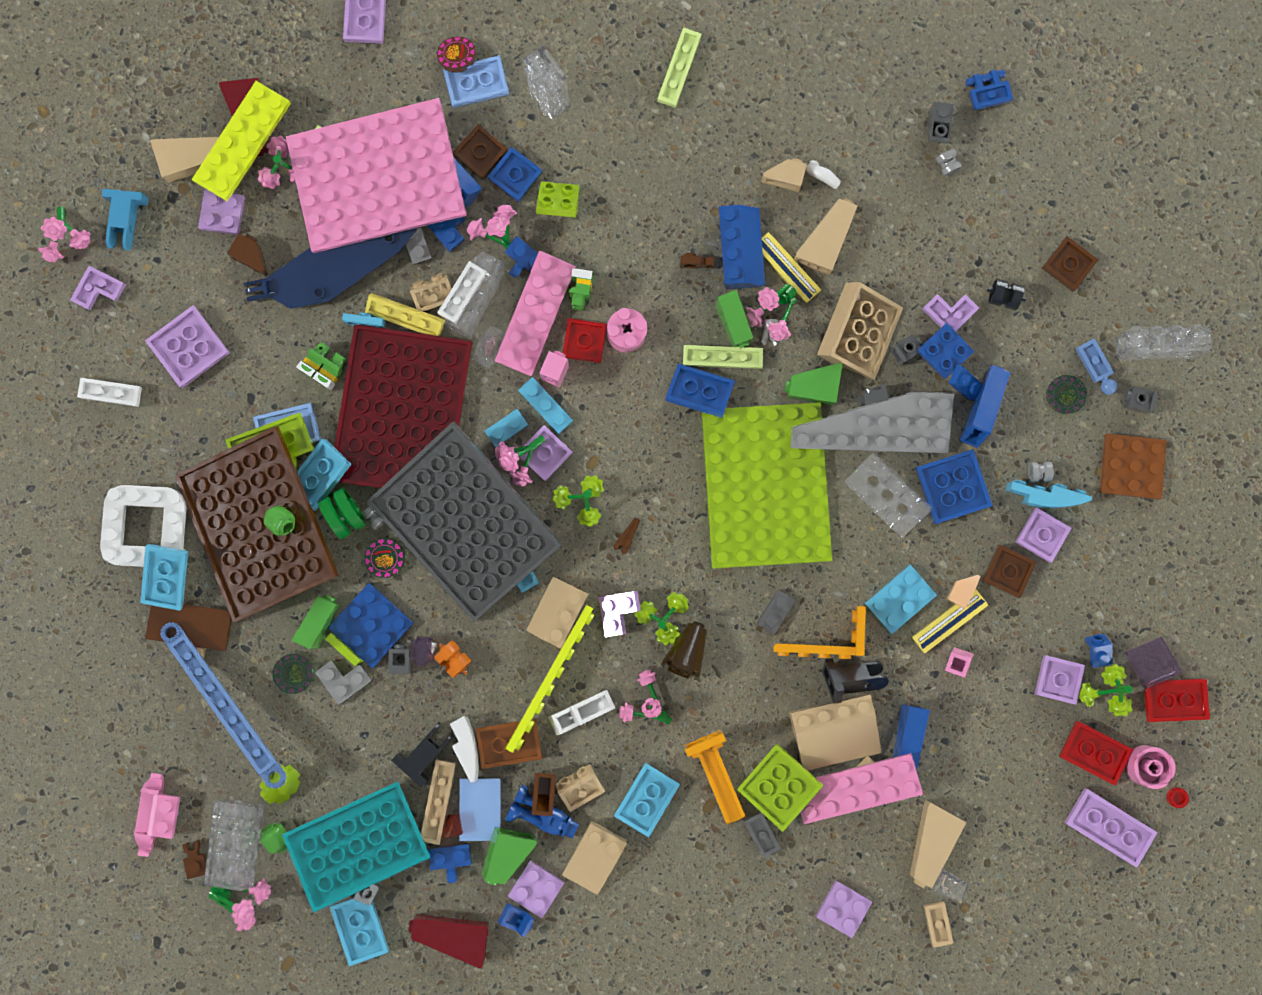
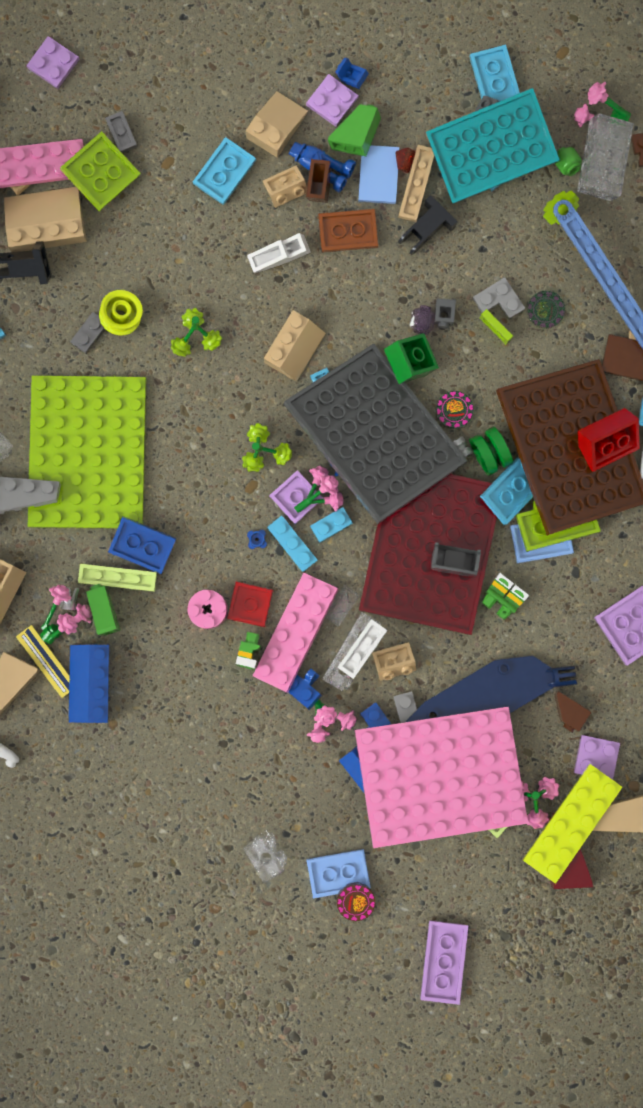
camera: 175 degrees left, 0 degrees up
(217, 534) = (609, 439): none -> red slope
(279, 520) = (548, 443): bright green head -> none
(317, 622) = (520, 352): bright green slope -> none
(363, 319) = (461, 638): medium azure plate -> none
(371, 625) = (470, 348): blue plate -> none
(372, 393) = (455, 560): none -> dark grey piece
(404, 315) = (422, 640): light yellow tile -> none
(431, 605) = (411, 358): none -> green brick
(450, 858) = (408, 133): blue plate -> none
(452, 658) = (394, 308): orange wheel -> none
(452, 936) = (410, 63): dark red slope -> none
(466, 748) = (387, 228): white slope -> none
(480, 151) = (338, 799): reddish brown plate -> none
(515, 174) = (305, 774): blue plate -> none
(547, 687) = (309, 277): neon yellow plate -> none
(554, 368) = (279, 575): bright pink brick -> none
(558, 199) = (265, 744): lime plate -> none
(577, 403) = (257, 534): none -> blue plate
(614, 607) = (241, 345): plate -> none
(625, 539) = (224, 412): reddish brown piece -> none
(652, 706) = (212, 248): bright pink plant -> none
(679, 67) = (134, 872): yellowish green plate -> none
(687, 652) = (174, 300): dark brown cone -> none
(690, 260) = (140, 674): reddish brown plate -> none
(707, 750) = (164, 208): light orange bracket -> none
(742, 646) = (117, 323): none -> neon yellow wheel
(786, 175) = (37, 753): tan slope -> none
(815, 385) = (29, 543): bright green slope -> none
(823, 651) = (45, 291): light orange bracket -> none

